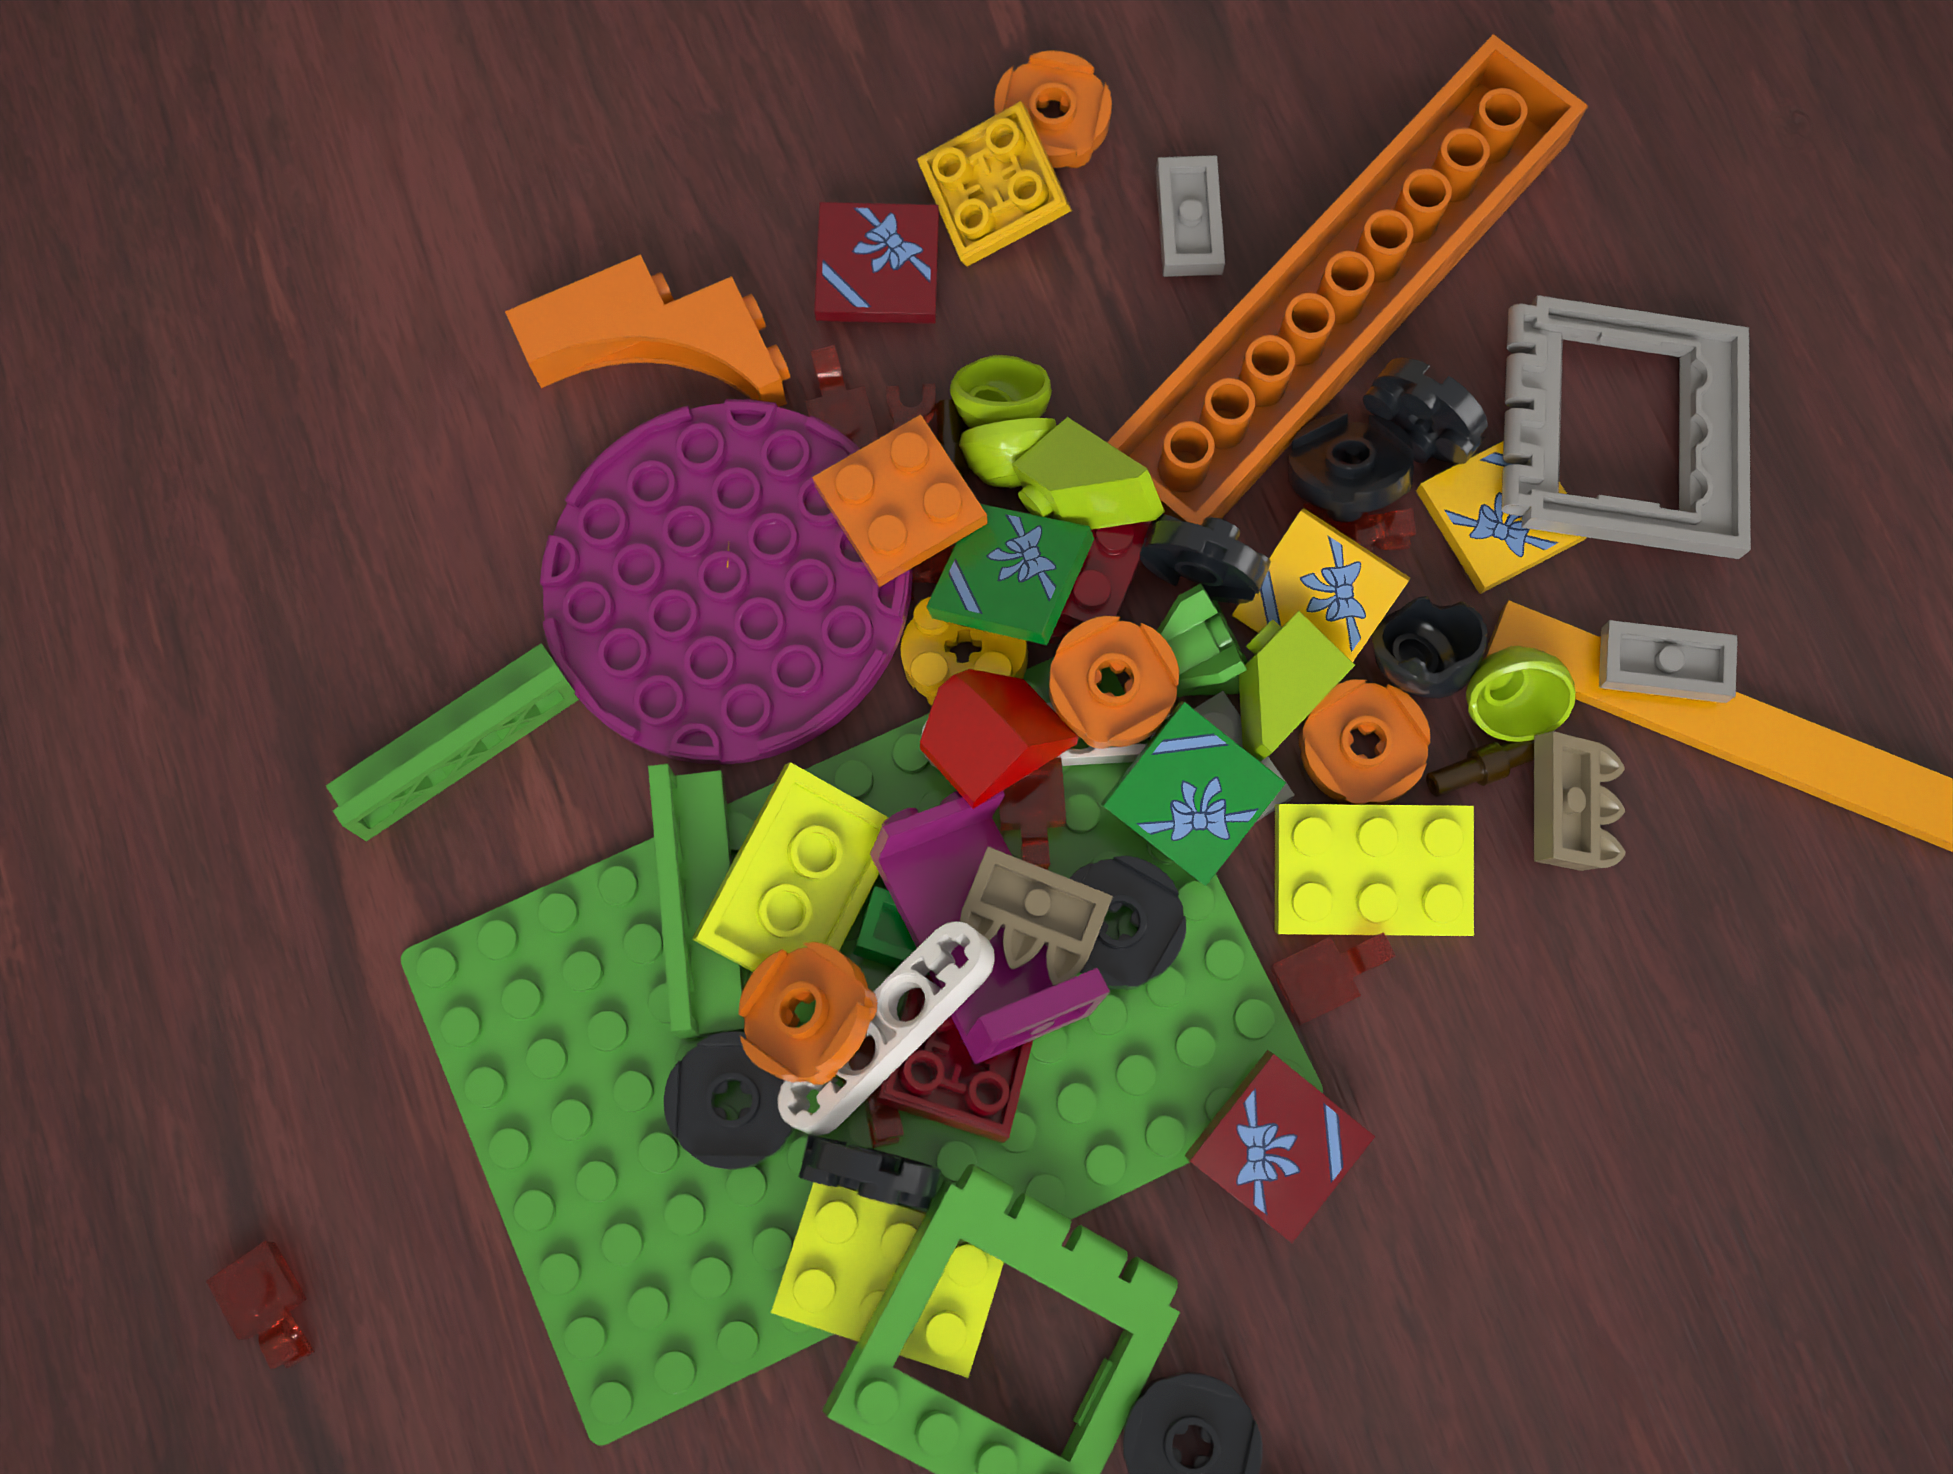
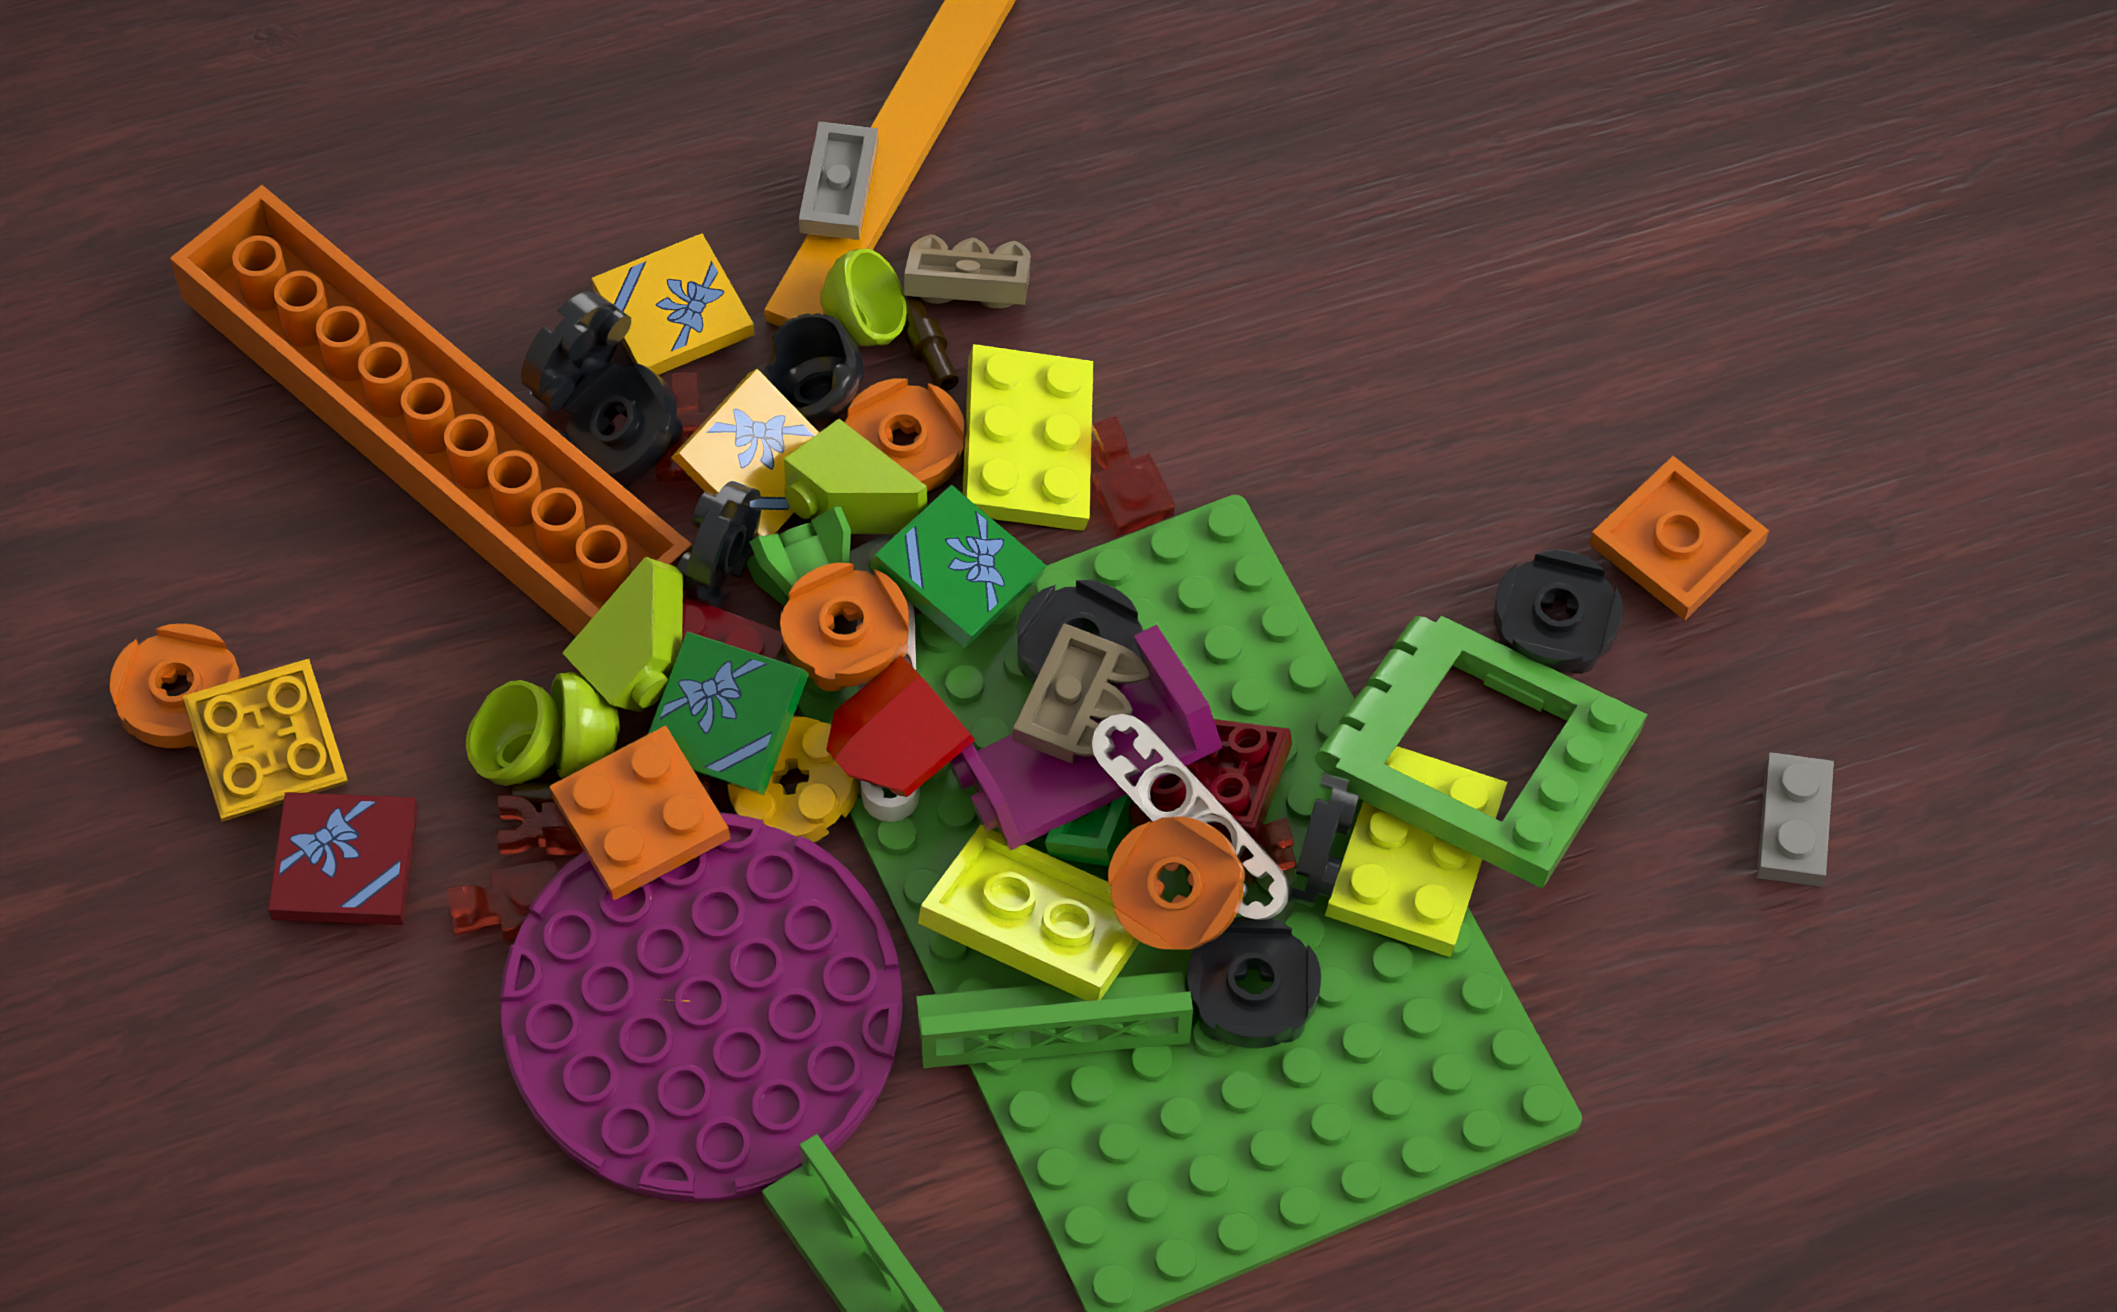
camera: 90 degrees left, 15 degrees down
(634, 319) = (389, 1097): orange arch -> none
(1033, 807) = (979, 709): clear red plate -> none
(1190, 216) = (320, 560): light grey plate -> none
(1279, 1146) = (1290, 521): dark red tile -> none
(1711, 428) = (595, 129): light grey hinge -> none

